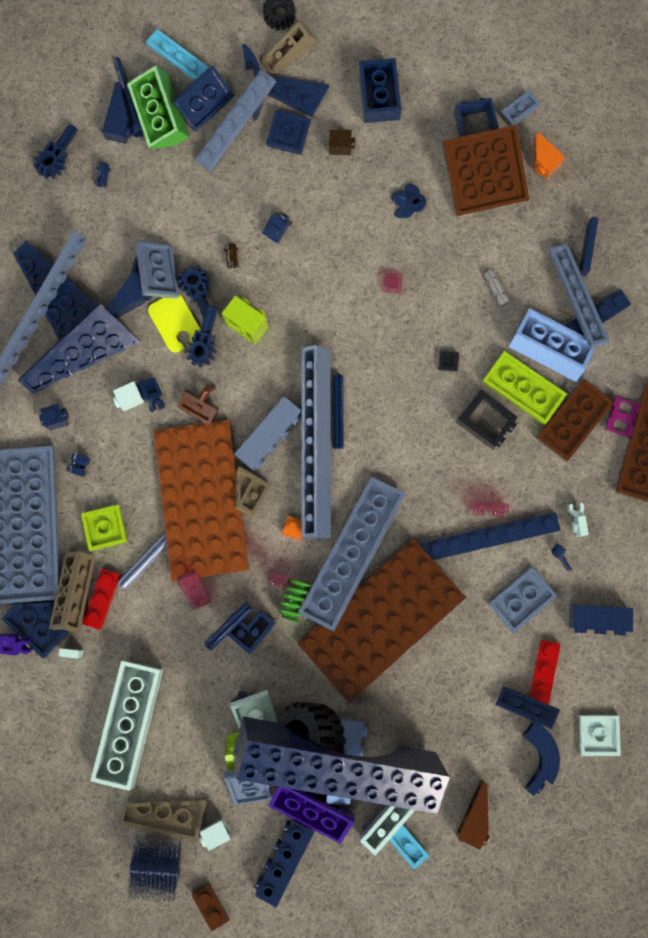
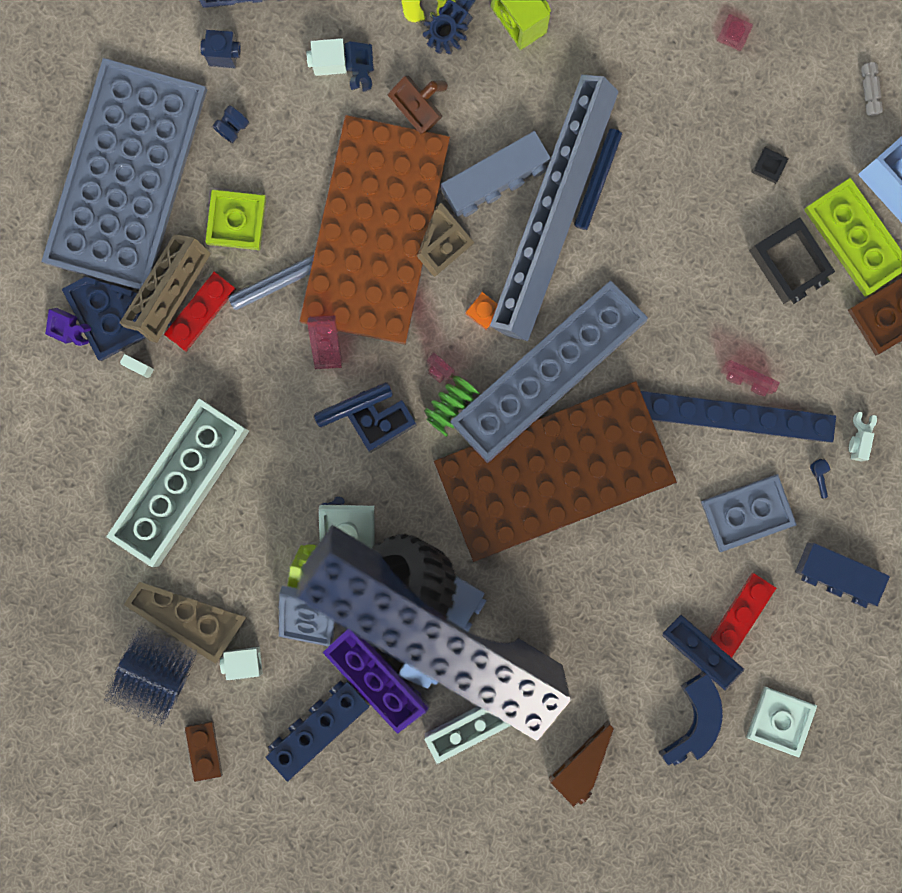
camera: 15 degrees right, 5 degrees up
(409, 847) = (483, 770): medium azure plate -> none

